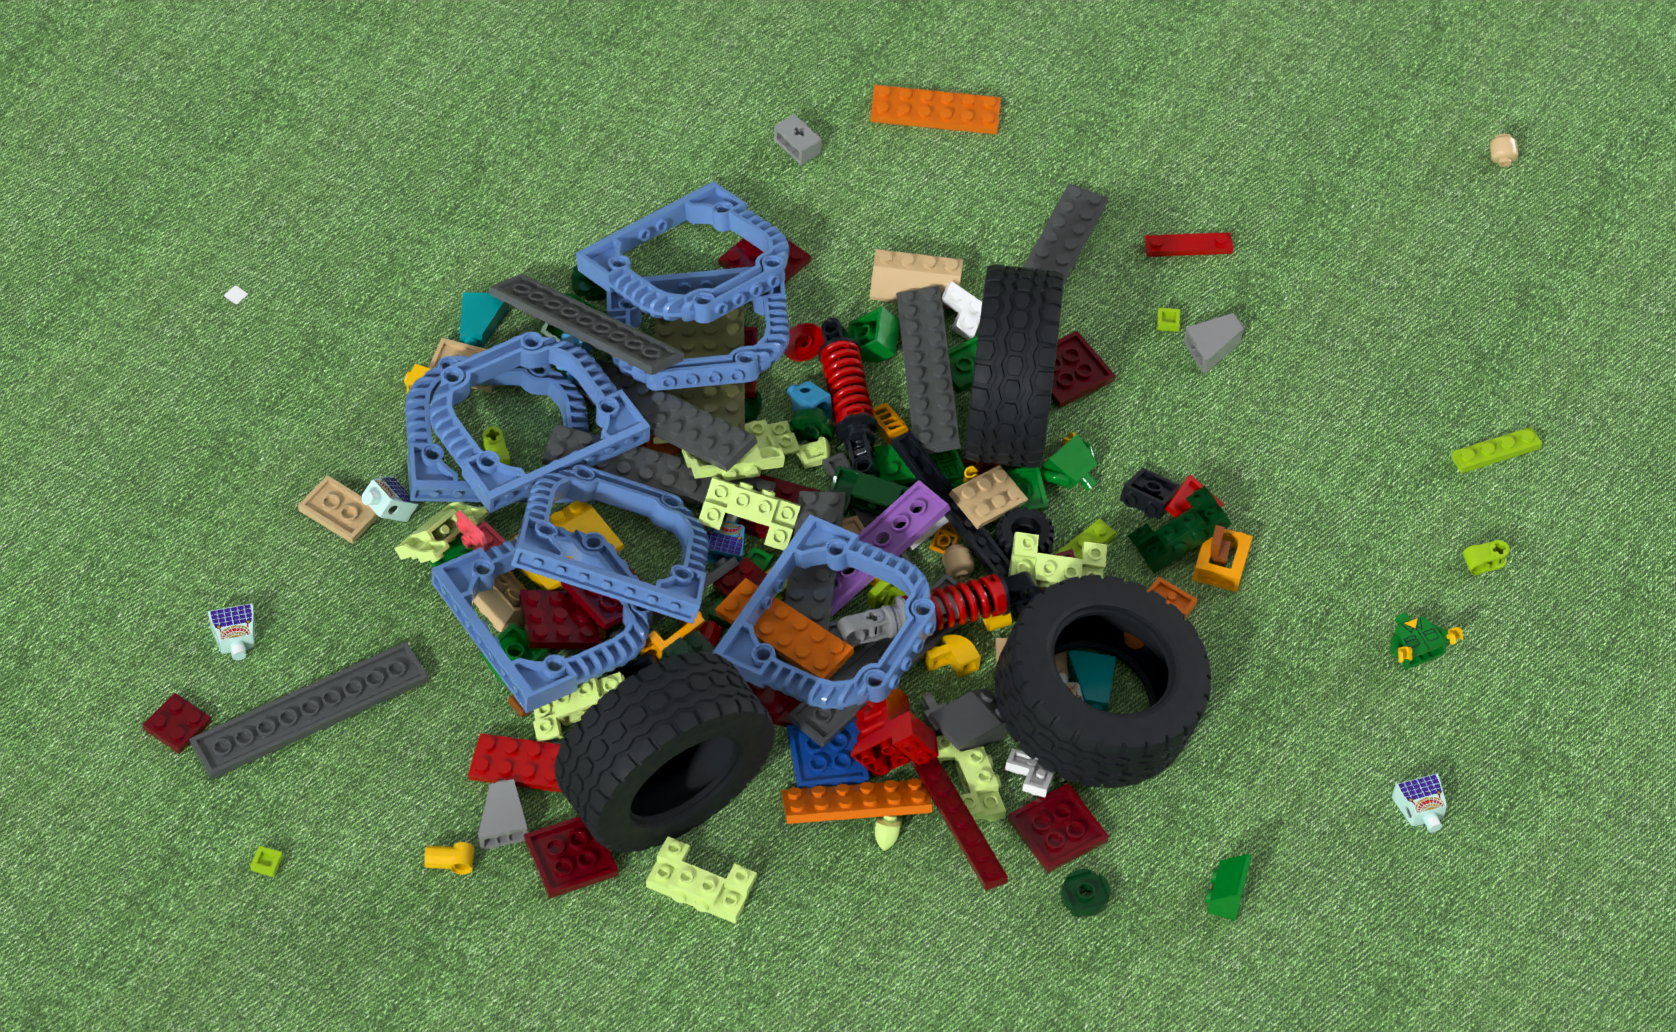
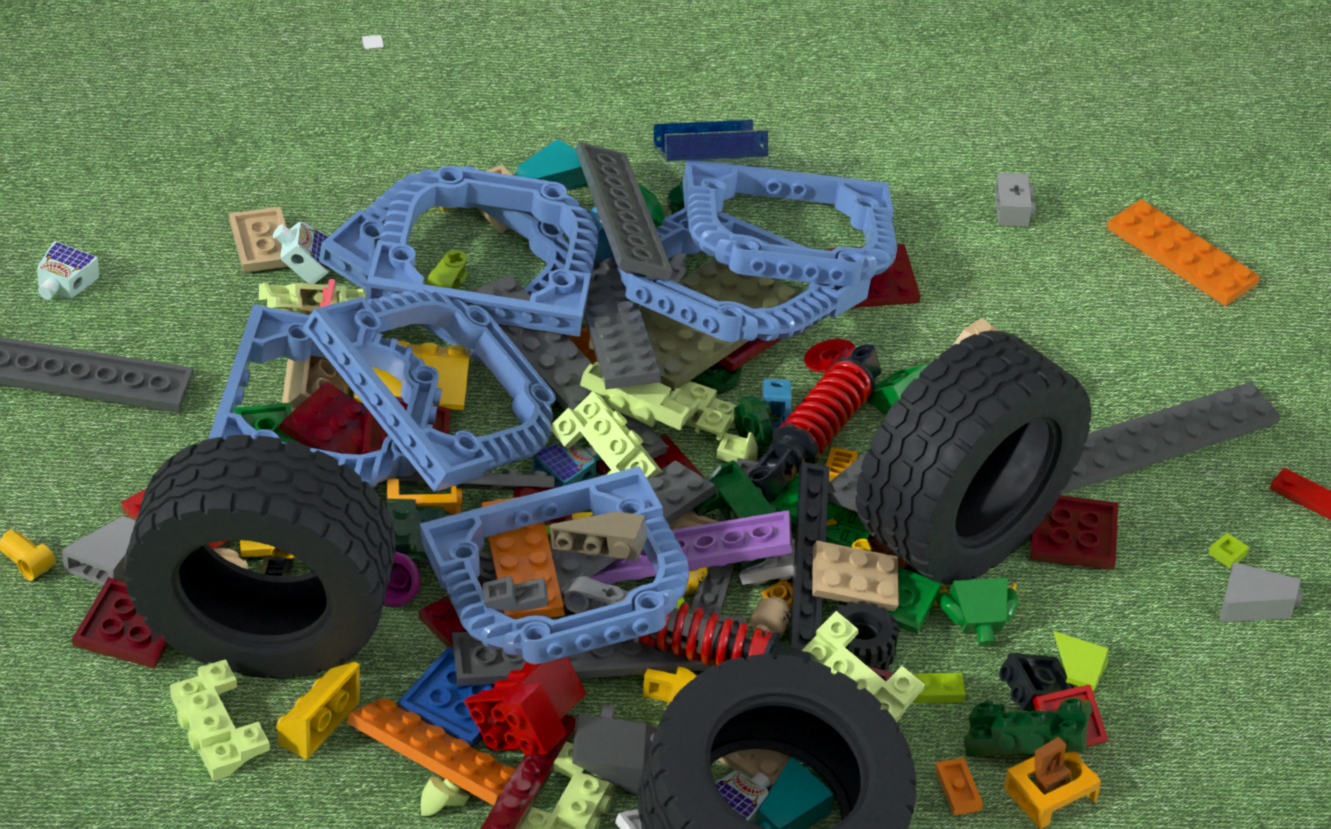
camera: 40 degrees right, 10 degrees down
(568, 227) = (709, 140): none -> clear blue panel
(757, 826) = (320, 710): none -> yellow slope
(835, 664) = (507, 595): none -> dark grey slope
(853, 579) = (606, 535): none -> dark tan slope
(1166, 460) = (1082, 660): none -> lime slope

